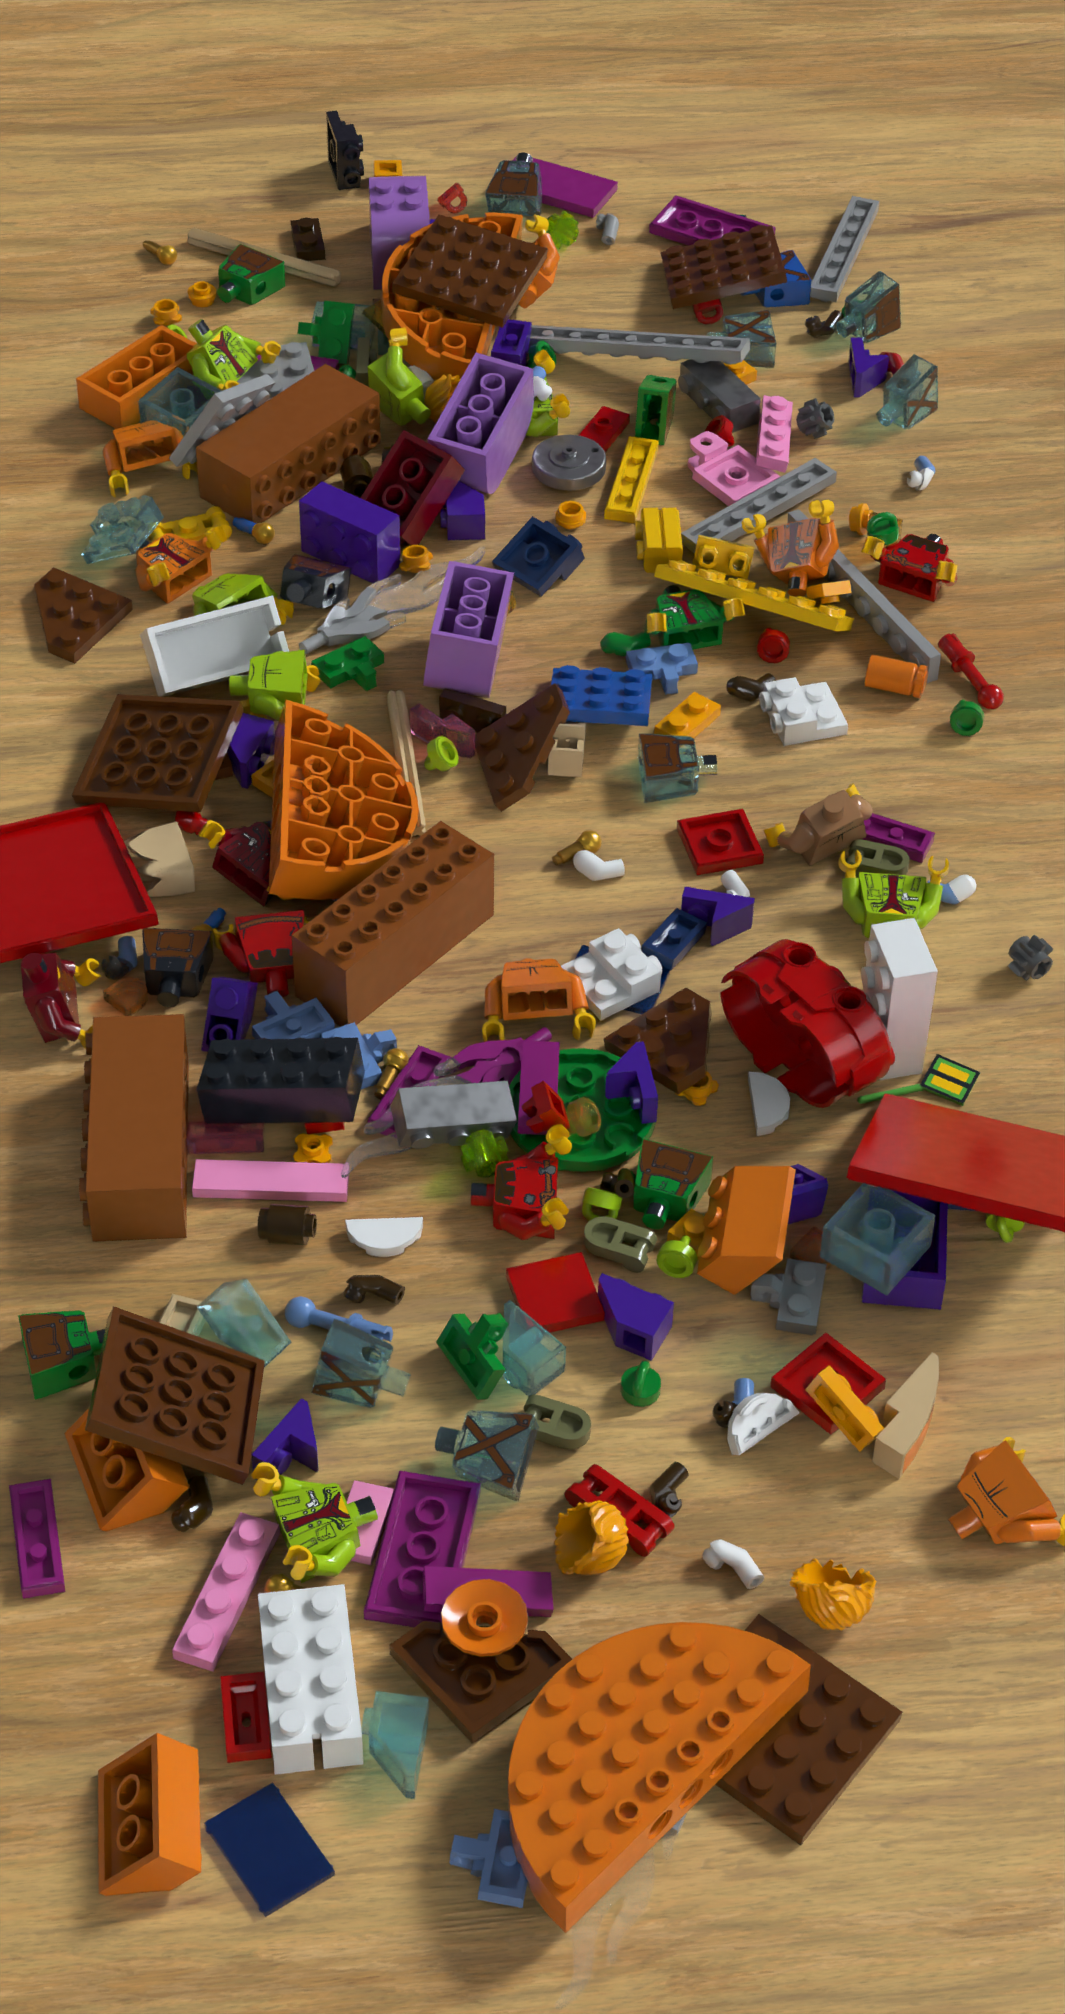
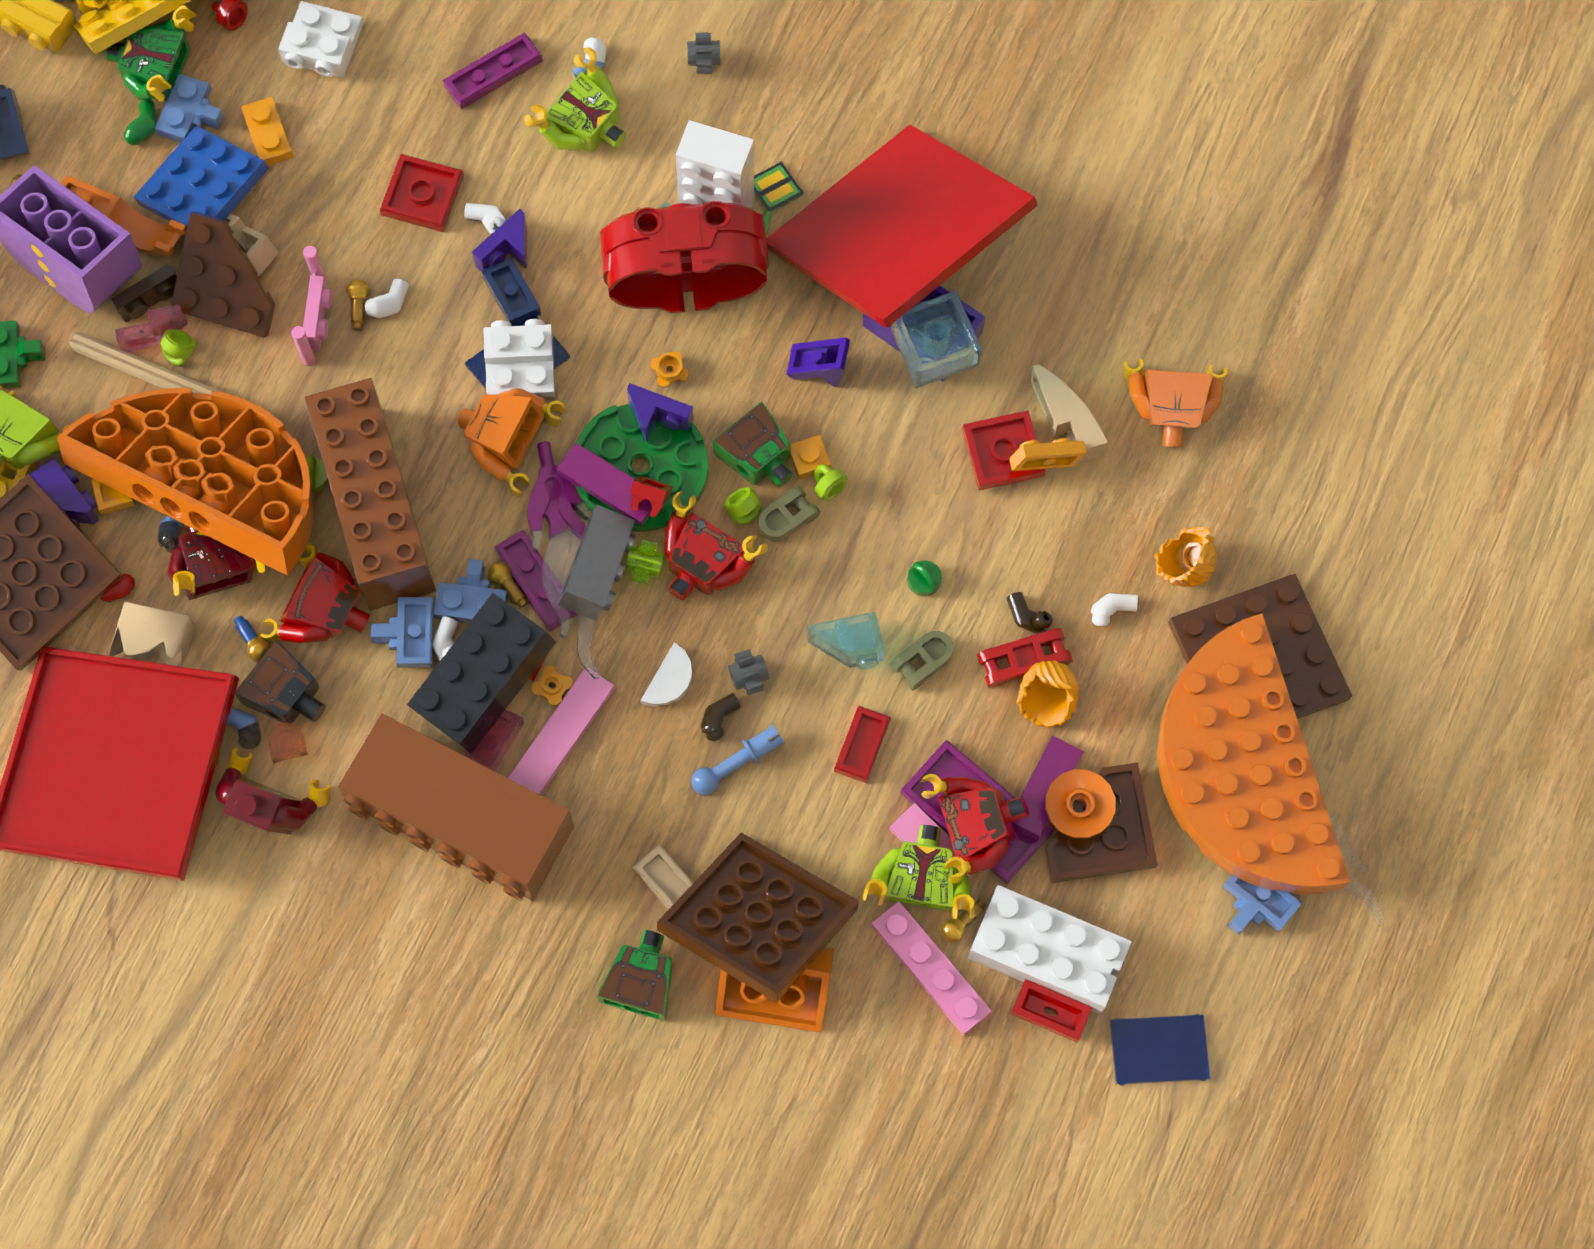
camera: 60 degrees left, 25 degrees up
(36, 1538) = (801, 1082): magenta tile -> none
(149, 1818) = (1099, 1121): orange slope -> none
(196, 1508) = (849, 955): dark brown arm -> none
(229, 1010) = (368, 674): dark purple slope -> none
(244, 1320) = (696, 829): clear light blue slope -> none
(287, 1224) = (619, 746): dark brown brick -> none
(289, 1440) = (831, 846): dark purple slope -> none
(356, 1367) = (798, 770): clear light blue torso -> none
(398, 1736) = (1132, 914): clear light blue slope -> none
(399, 1533) = (976, 822): none -> red torso
(422, 1418) = (862, 744): none -> red tile
(432, 1284) = (748, 672): none -> dark grey gear
(473, 1350) = (831, 677): green hinge -> none
(491, 1449) = (930, 716): clear light blue torso -> none
(525, 660) = (147, 234): none -> orange piece
(542, 821) = (318, 300): none -> bright pink plate
(556, 1292) = (803, 588): red tile -> none
(583, 1117) = (665, 470): clear yellow tile -> none
(621, 1184) = (733, 479): dark brown arm -> none
(634, 1316) = (865, 547): dark purple slope -> none
(671, 766) = (317, 178): torso -> none
(674, 1039) = (611, 356): reddish brown plate -> none
(742, 1388) = (986, 523): arm -> none
(745, 1225) = (842, 417): orange slope -> none
(748, 688) = (264, 63): dark brown arm -> none
(757, 1418) = (1006, 518): white tile -> none
(769, 1102) = (716, 326): white tile -> none
(794, 1294) = (909, 422): light grey hinge -> none
(809, 1248) = (877, 382): clear orange tile -> none
(825, 826) = (479, 106): medium nougat torso -> none
(878, 858) = (533, 84): olive plate -> none

